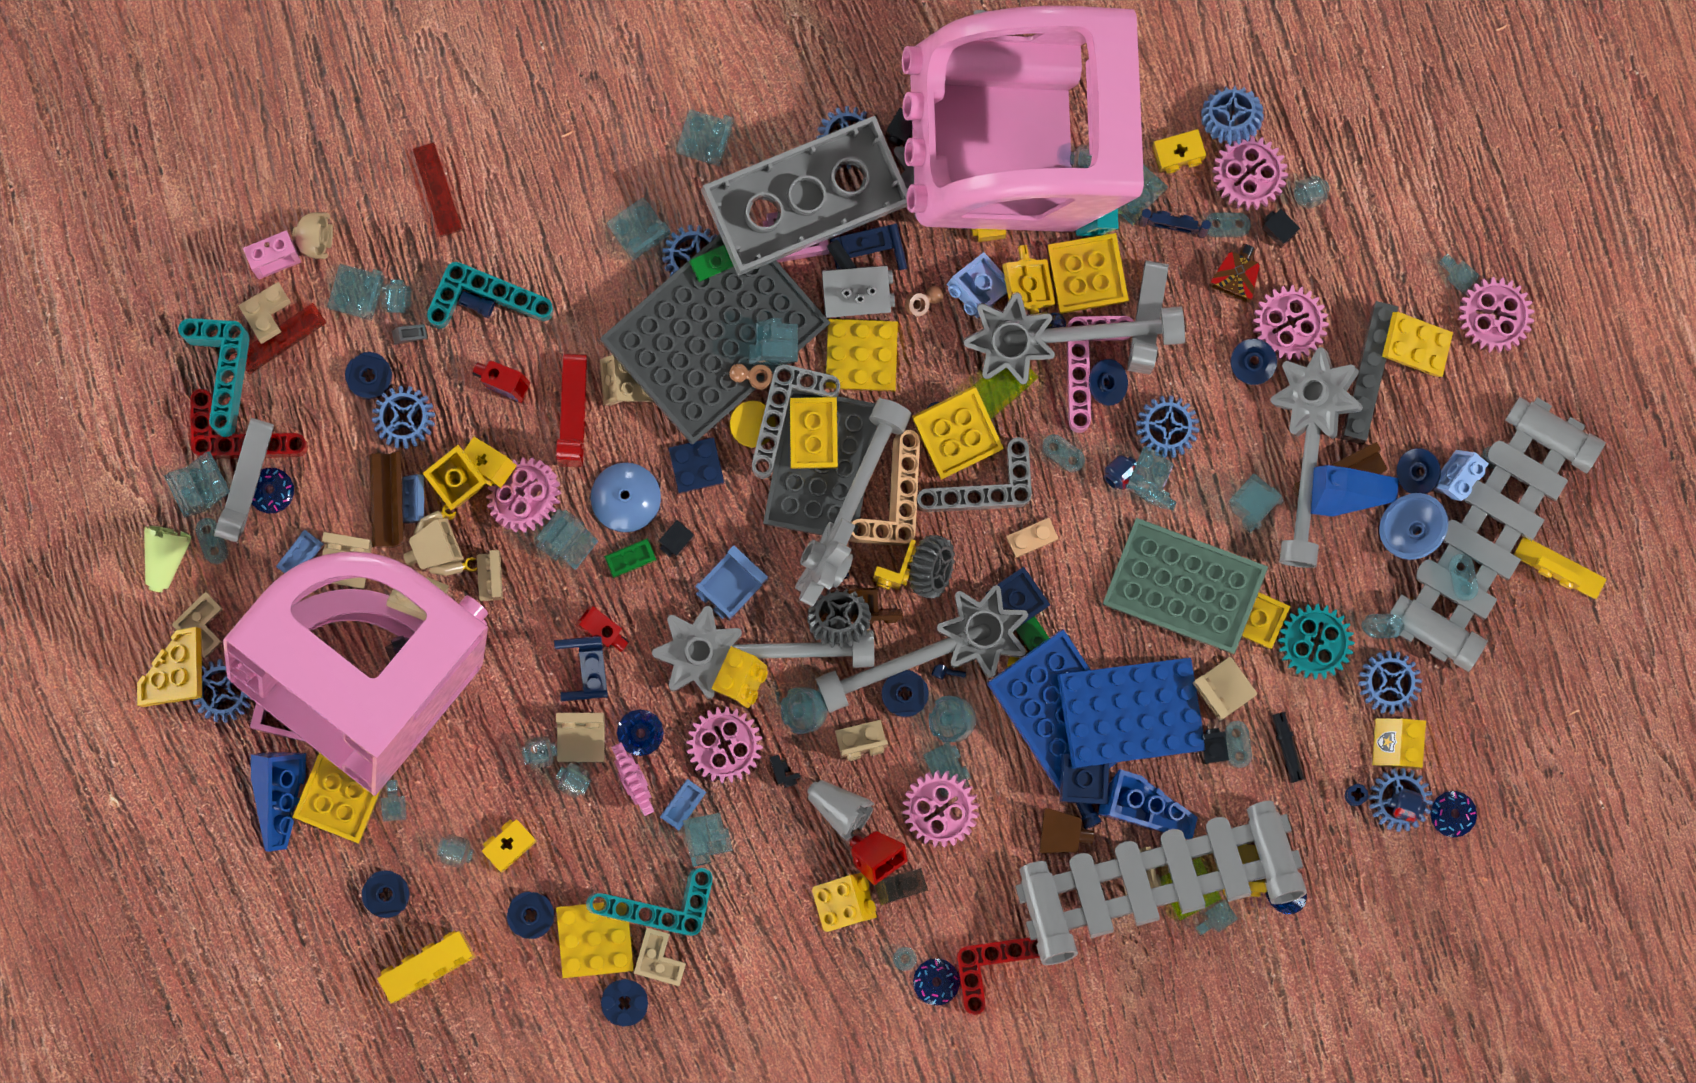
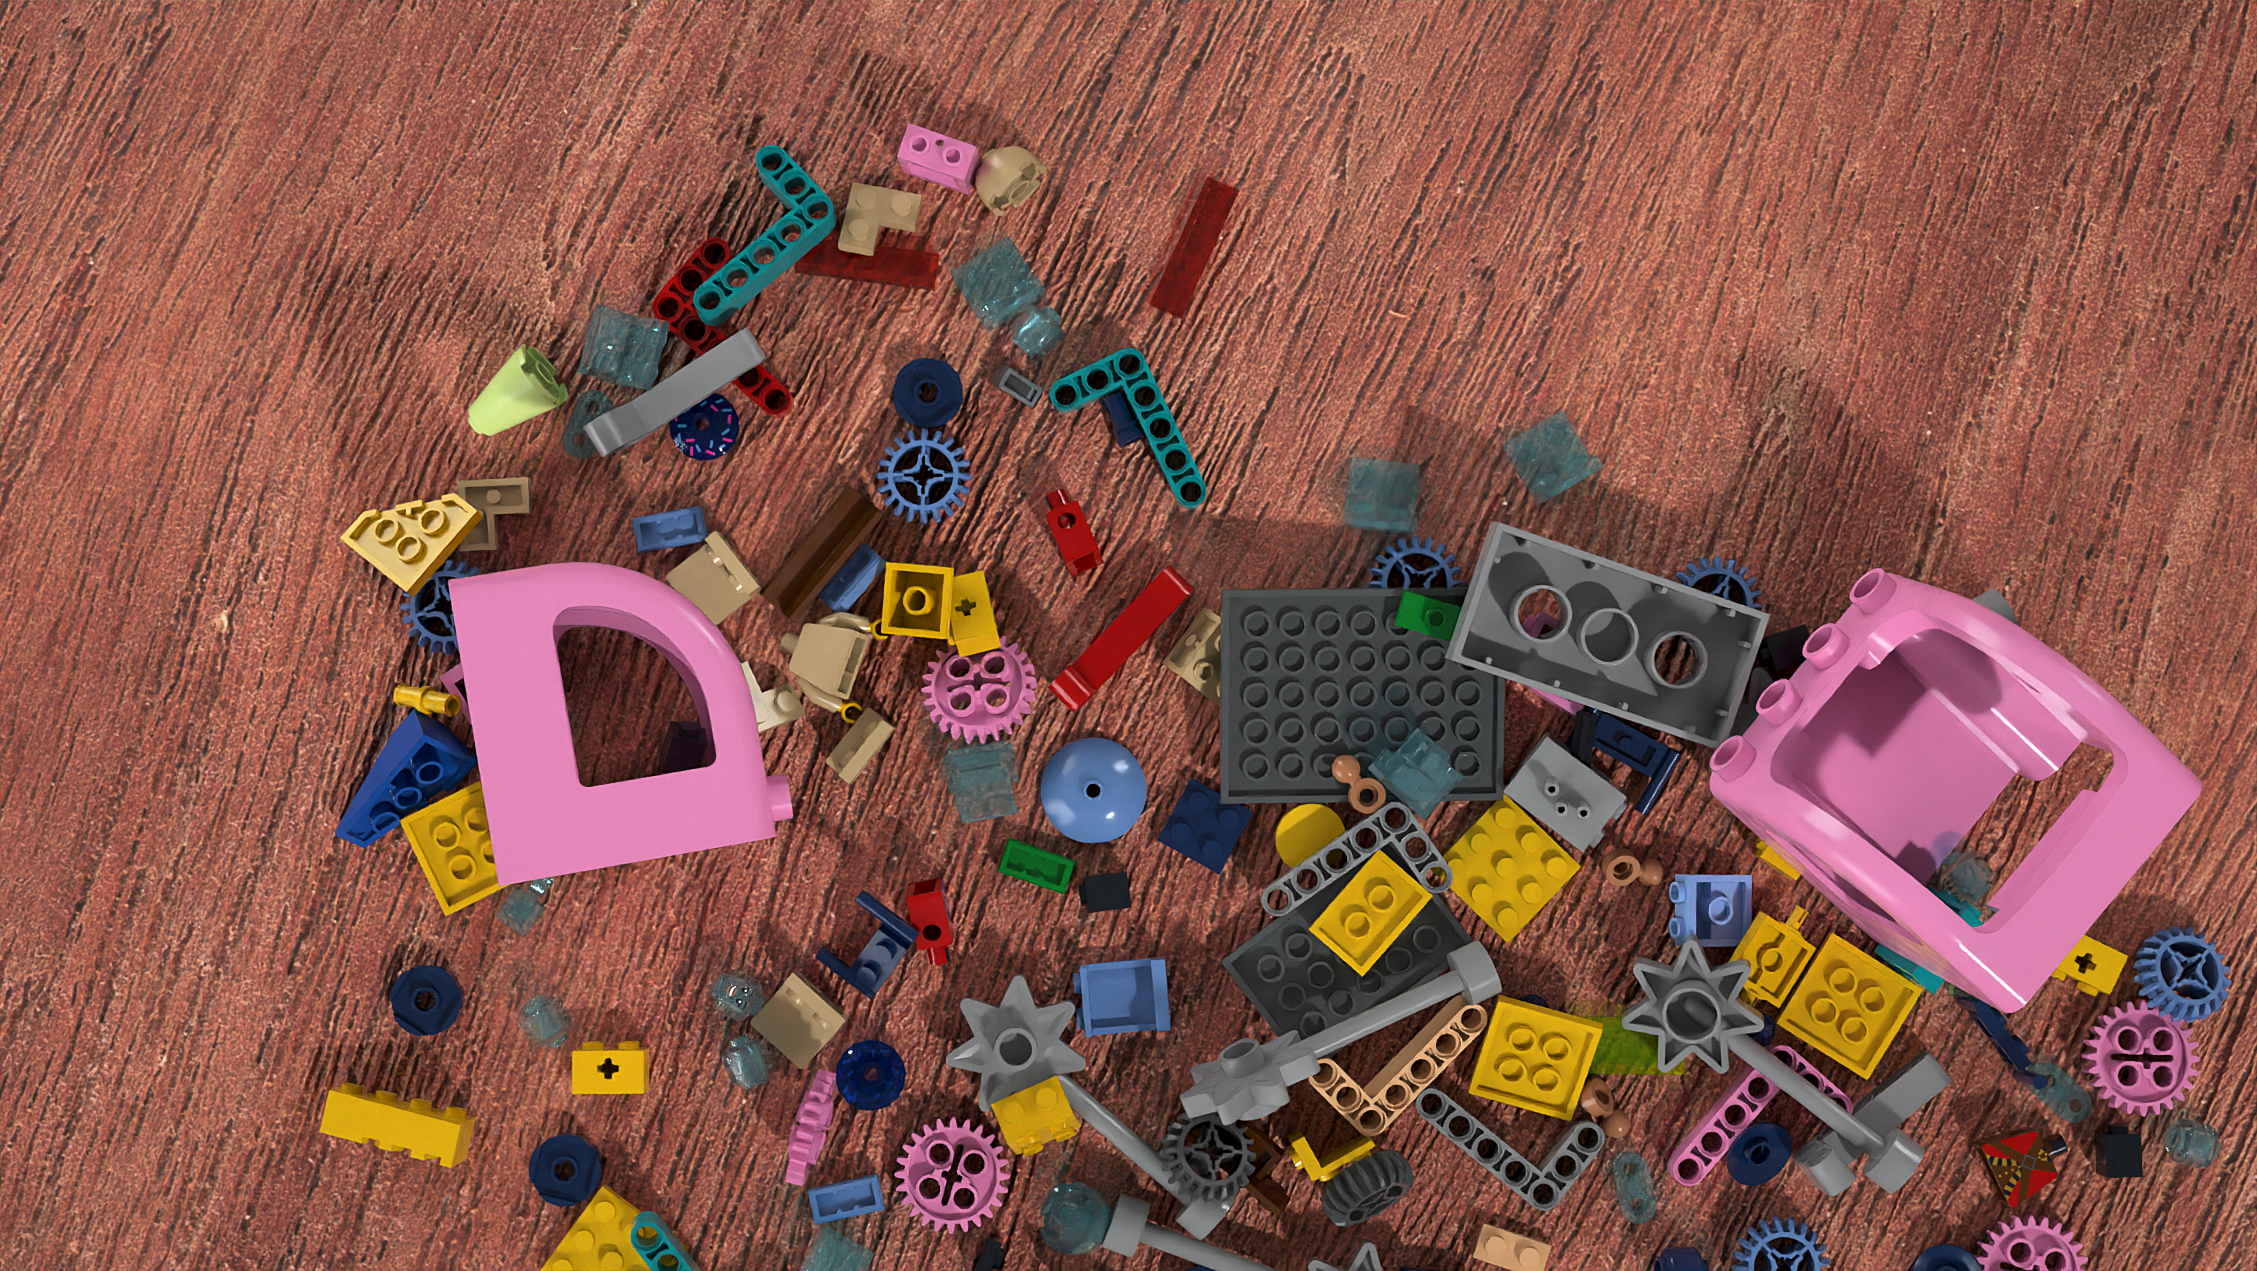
camera: 50 degrees right, 5 degrees up
(253, 744) = (427, 700): none -> yellow pin
(1007, 426) = (1598, 1101): none -> nougat plate

